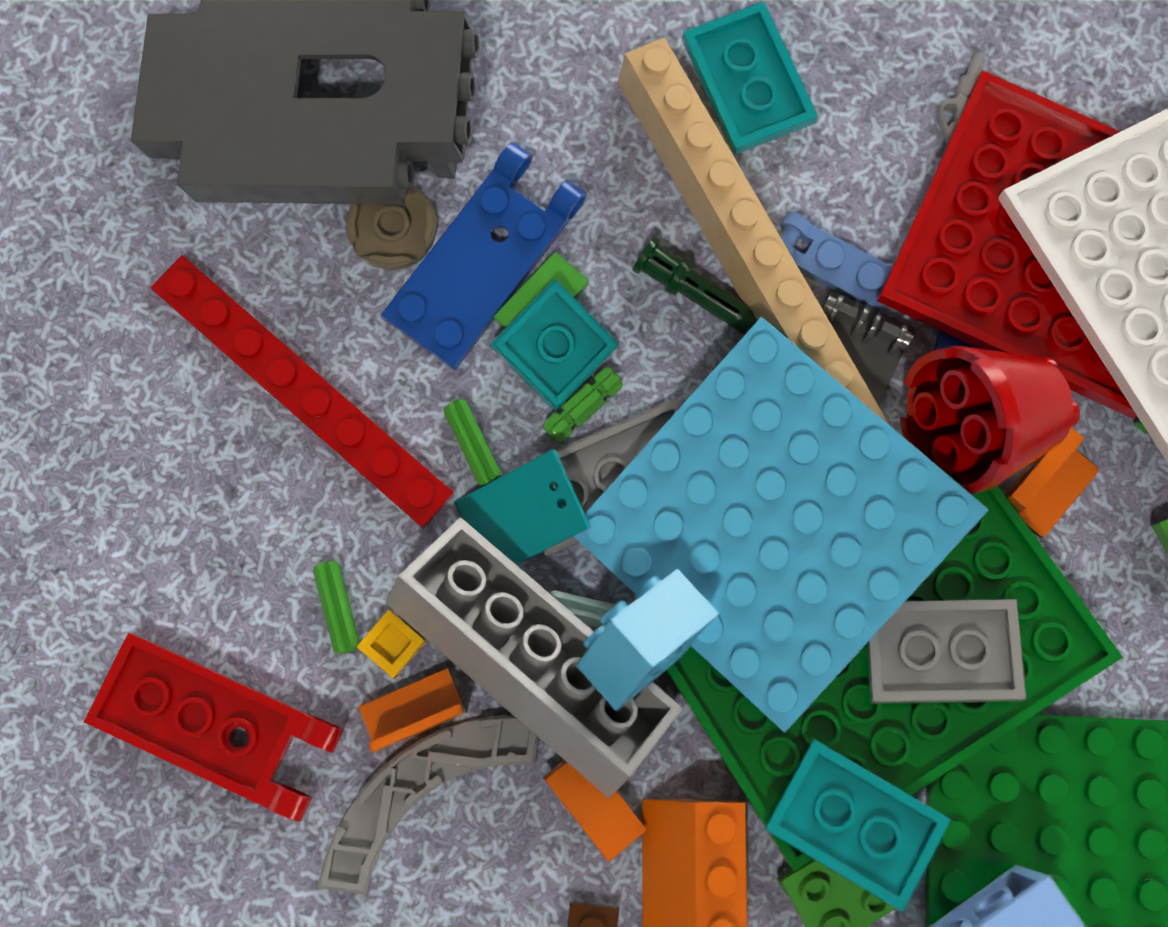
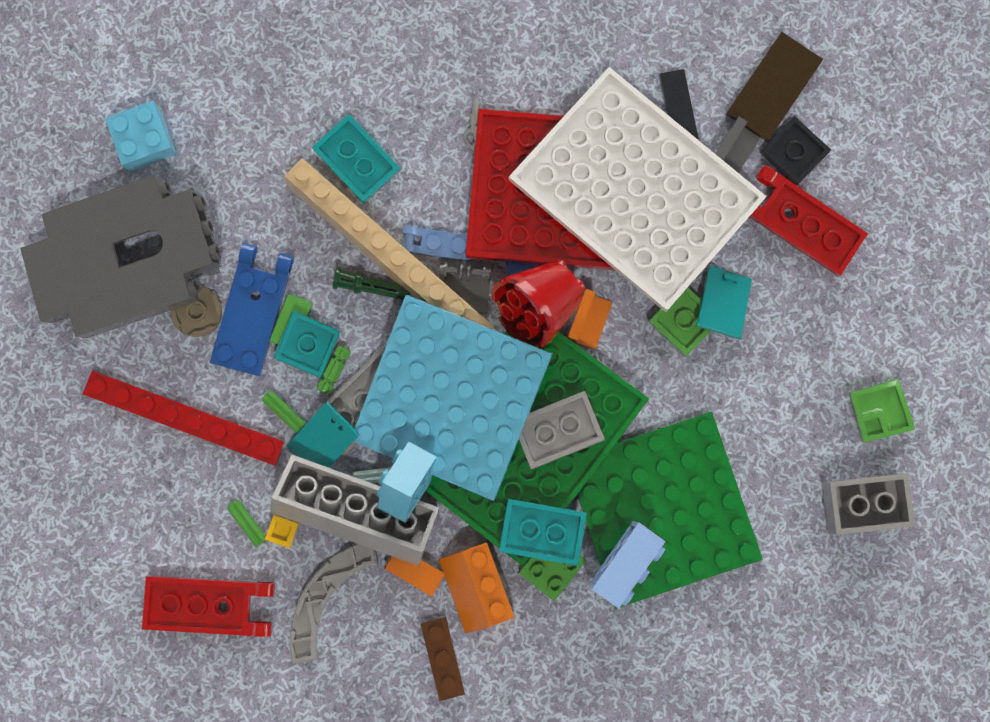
camera: 20 degrees left, 5 degrees up
(412, 710) = (305, 559): orange panel -> none

